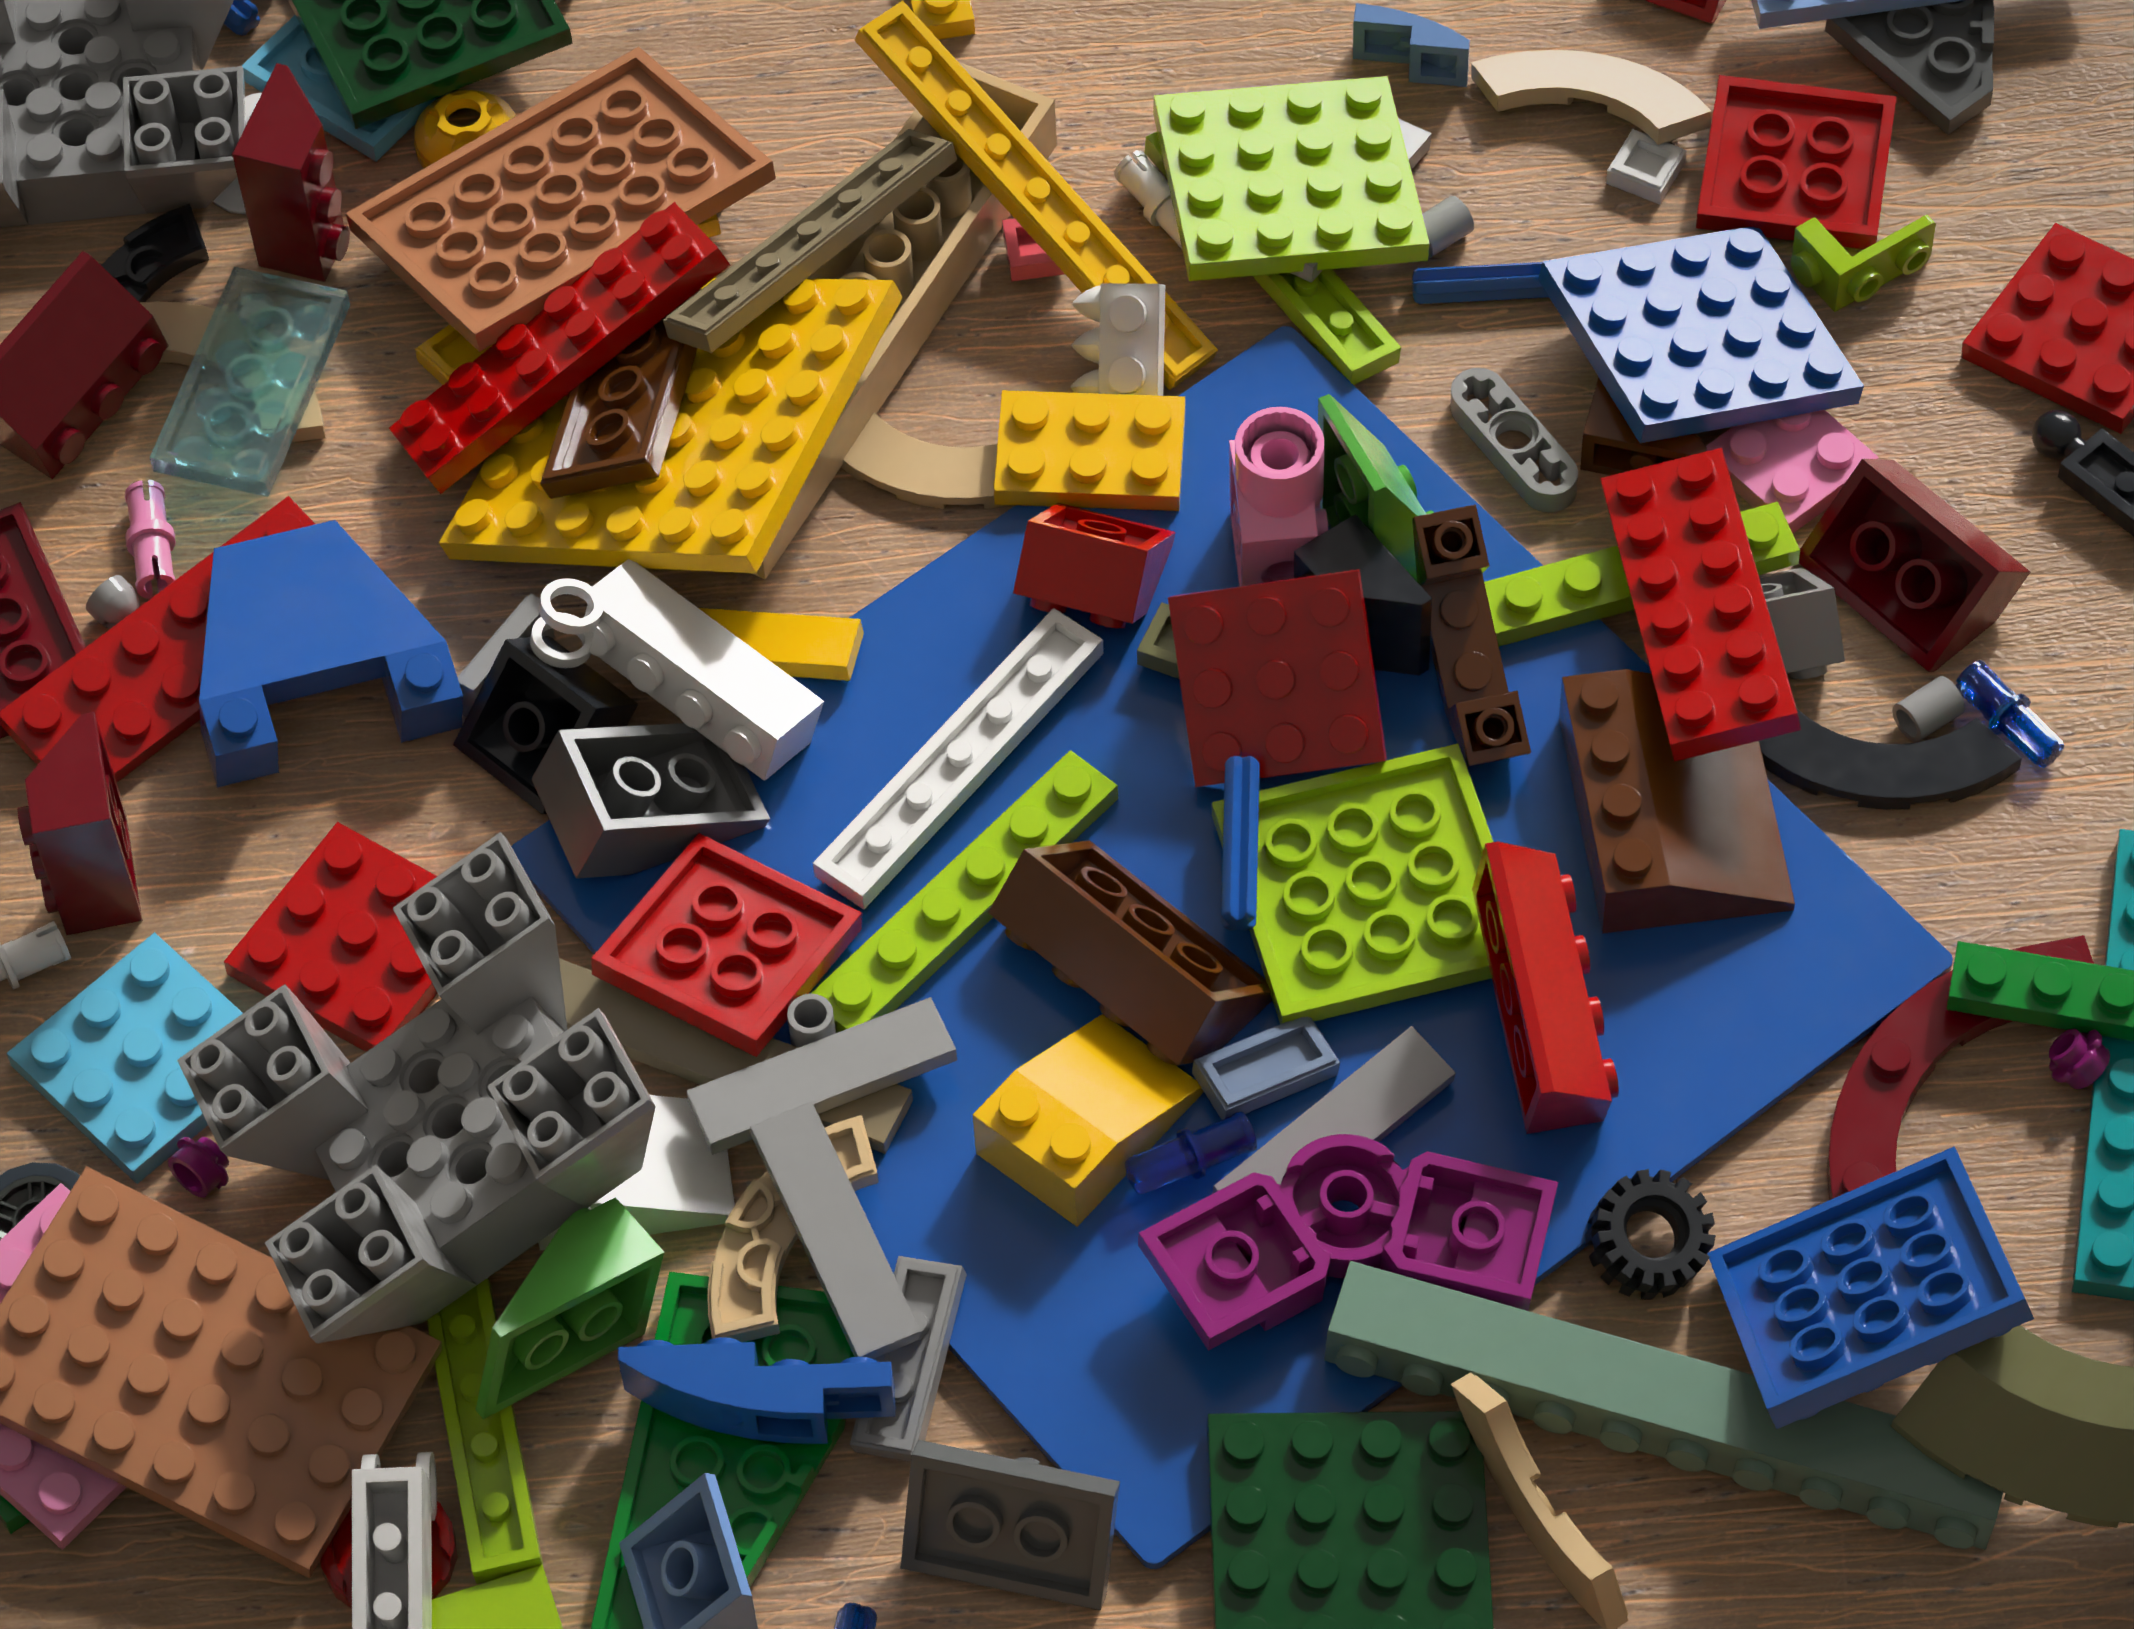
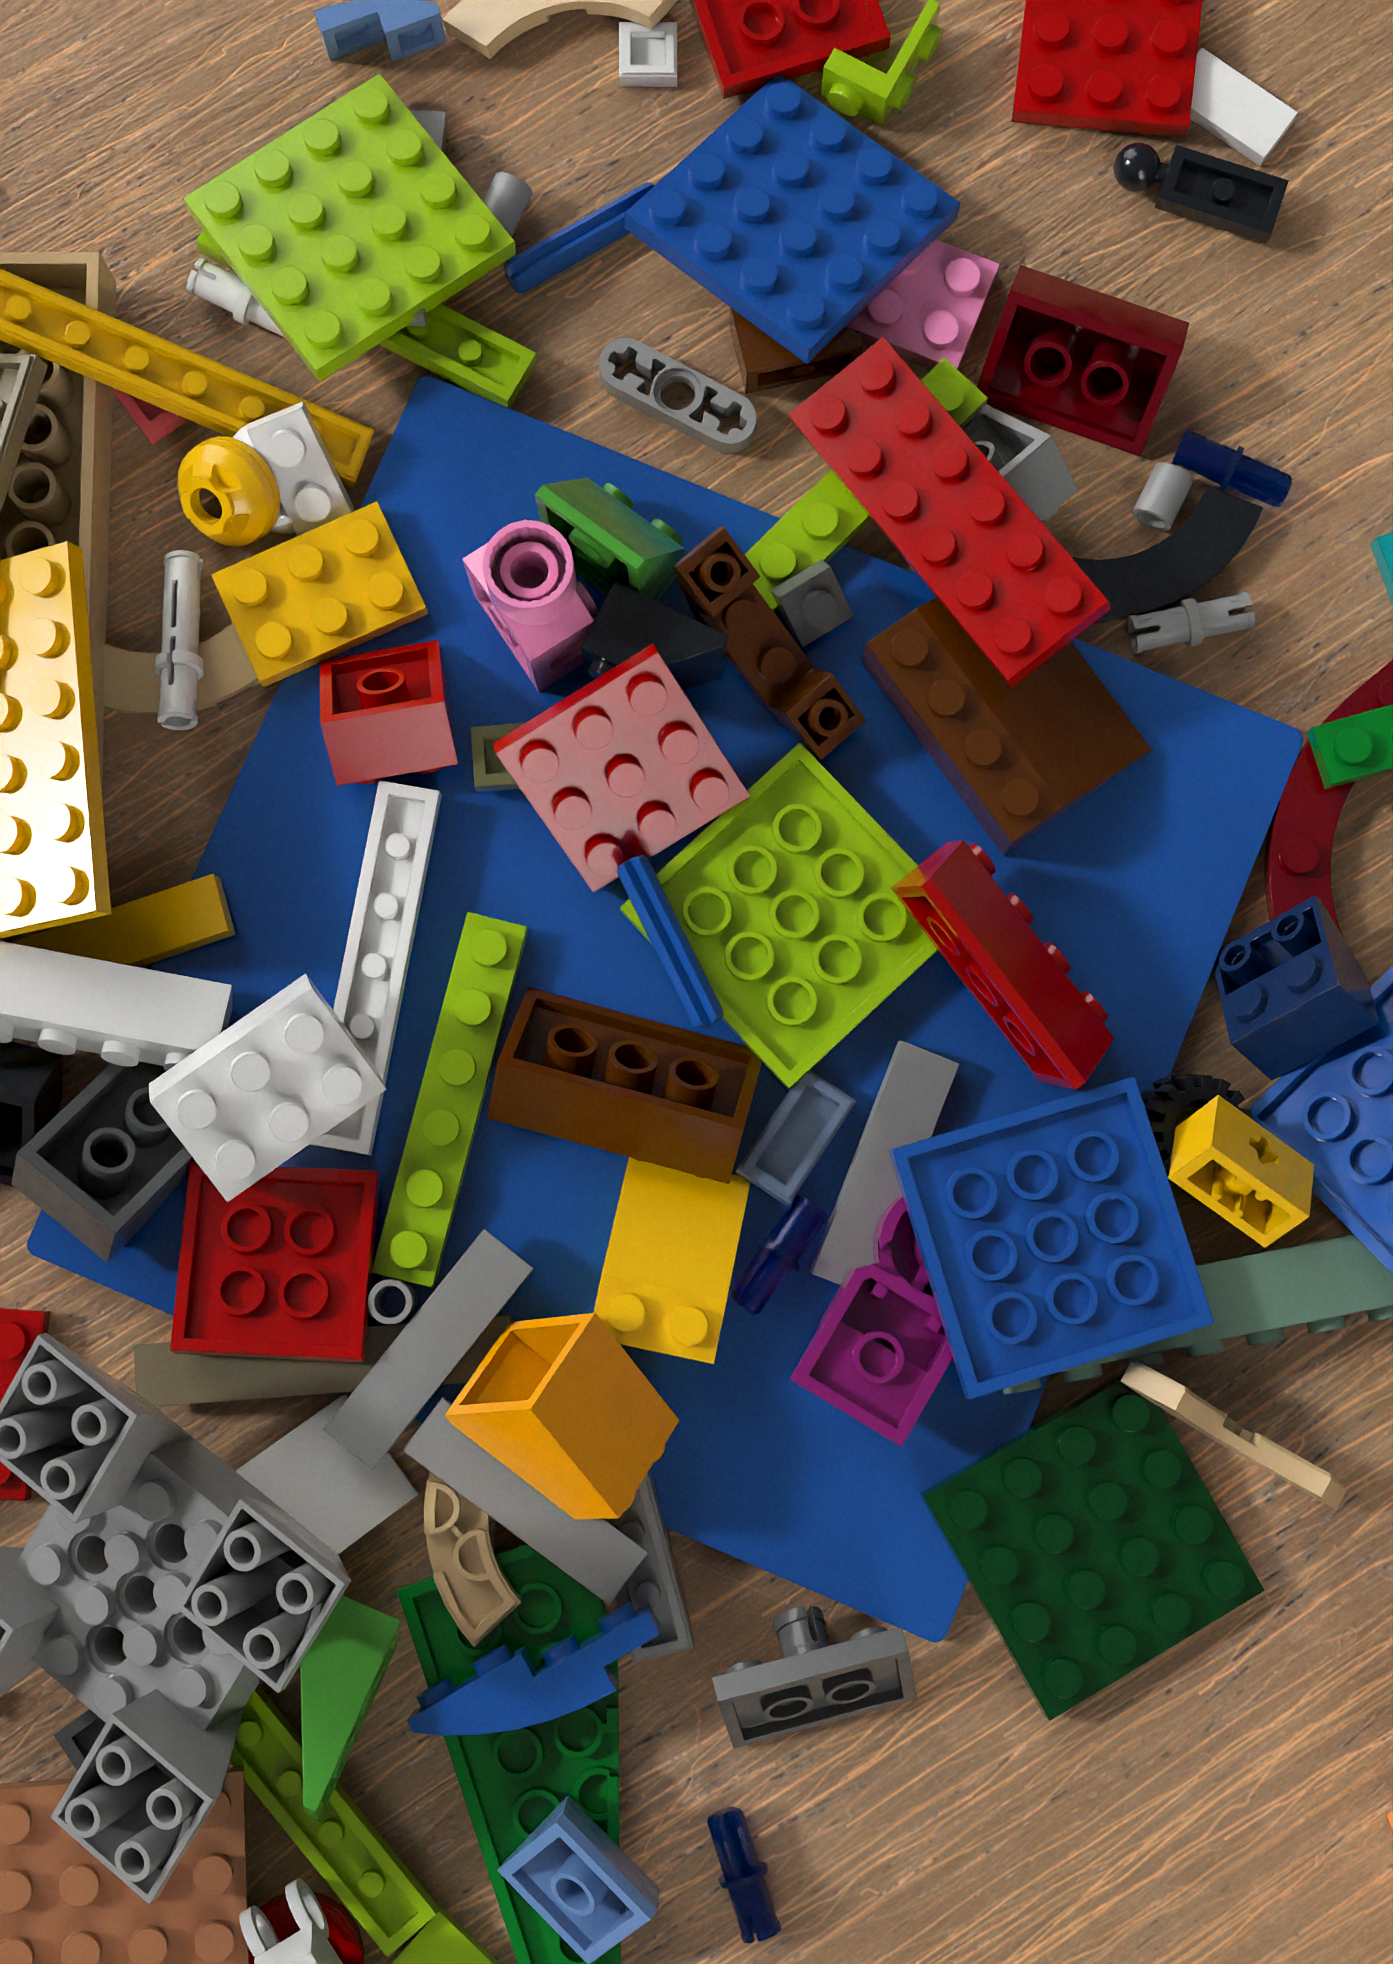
camera: 30 degrees left, 25 degrees up
(807, 777) = (265, 1088): none -> white brick
(919, 1169) = (566, 1413): none -> light orange slope
(932, 446) = (179, 659): none -> white pin
(1069, 340) = (241, 484): none -> yellow piece
(1451, 1222) = (1050, 1237): none -> blue plate
(1536, 641) = (812, 603): none -> dark grey plate
(1668, 1256) = (1241, 1171): none -> yellow brick
(1811, 1150) = (1292, 990): none -> dark blue slope
(1896, 823) = (1190, 622): none -> light grey pin

